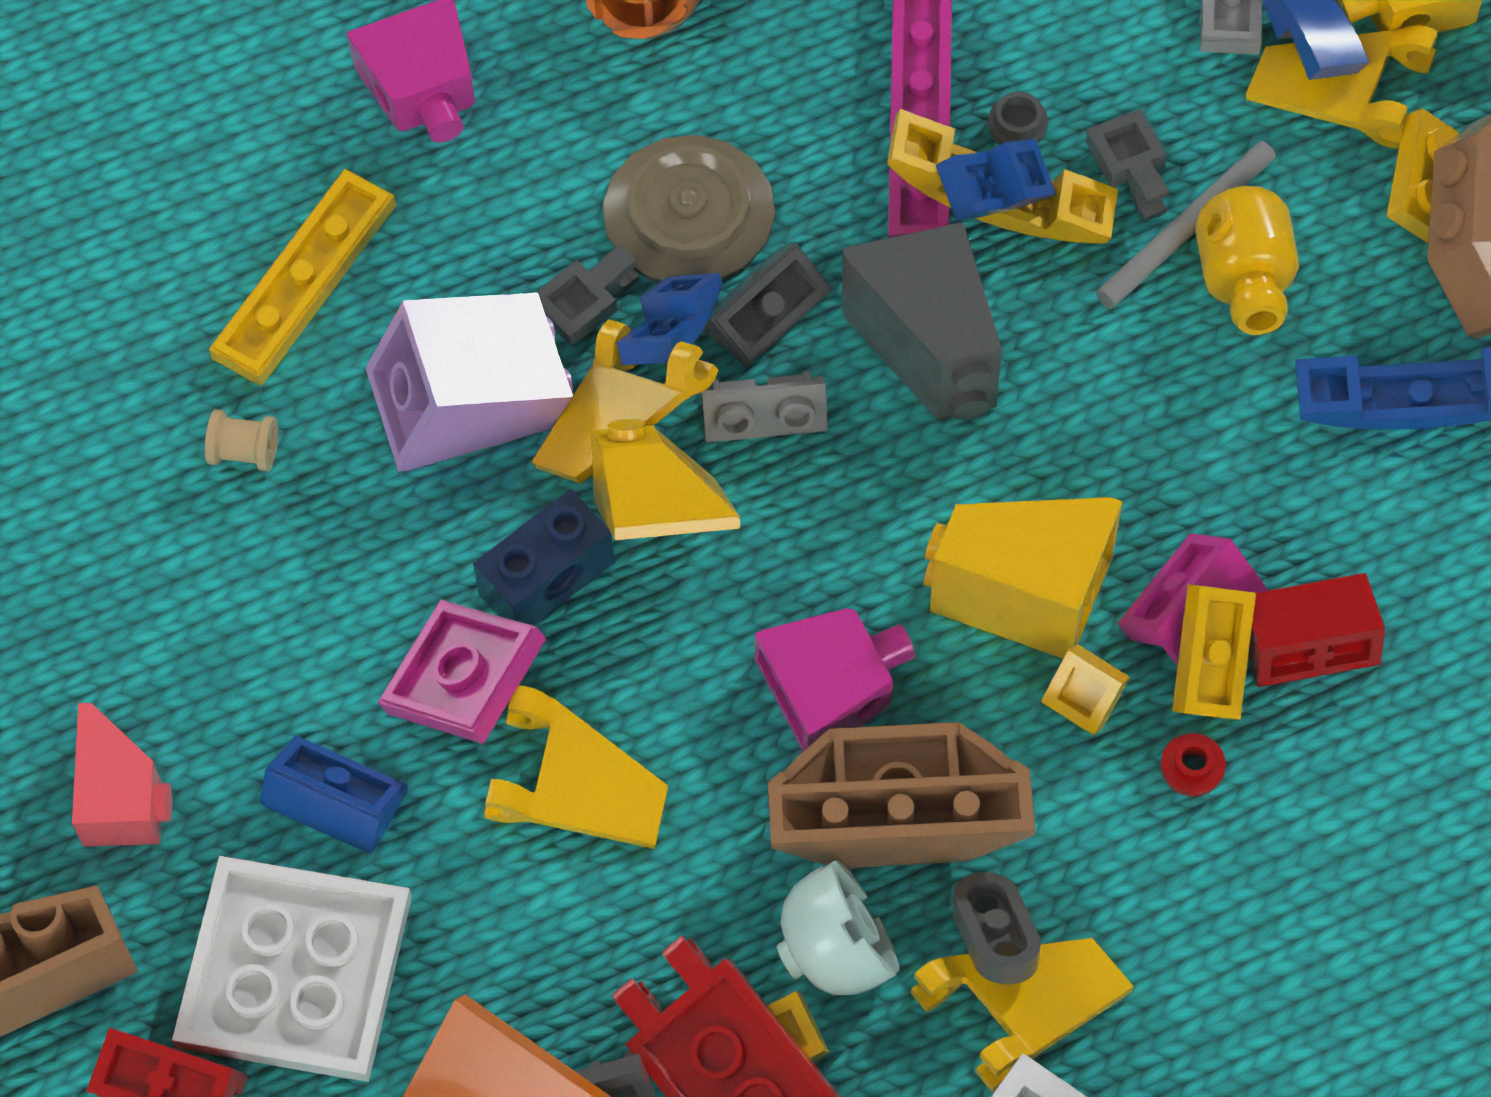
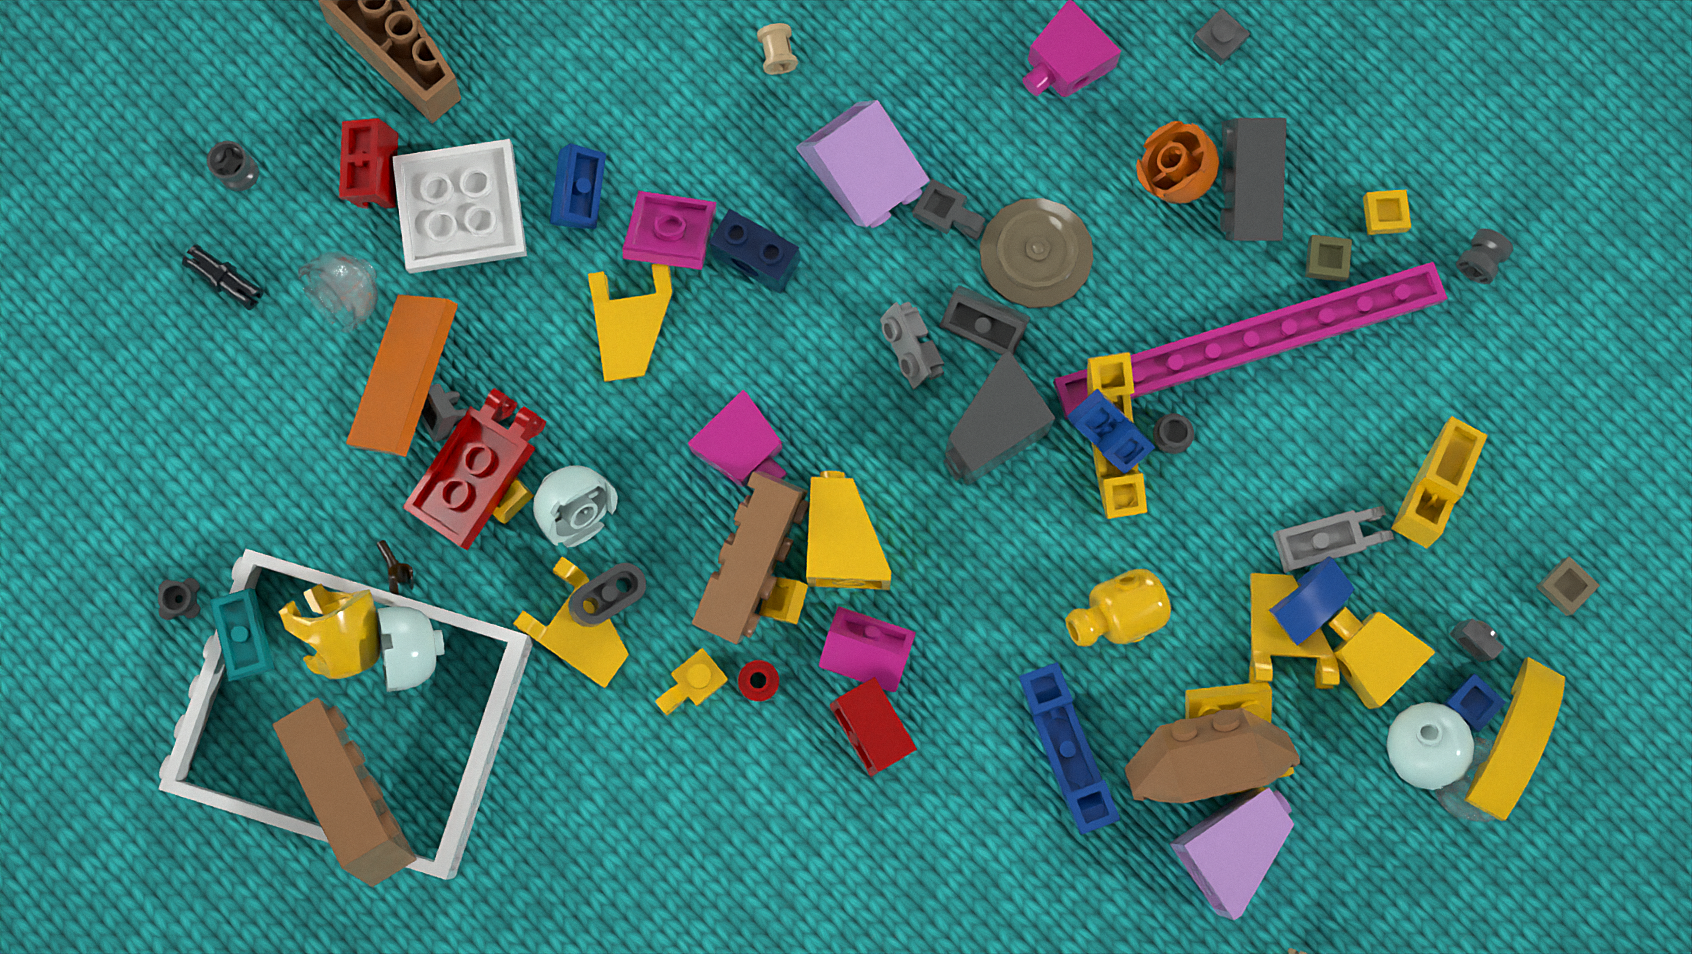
camera: 70 degrees right, 15 degrees up
(115, 786) = (537, 63): coral slope -> none
(302, 277) = (904, 42): yellow tile -> none
(616, 395) = (874, 254): yellow flag -> none
(652, 486) = (819, 299): yellow slope -> none
(672, 313) = (953, 269): blue slope -> none
(900, 797) = (668, 507): medium nougat wedge -> none
(1010, 694) = (751, 557): none -> medium nougat wedge
(1132, 154) = (1172, 511): dark grey plate -> none
(1165, 855) = (696, 680): none -> yellow plate
(1181, 227) = (1133, 561): light grey bar -> none
(1214, 652) = (830, 670): yellow plate -> none

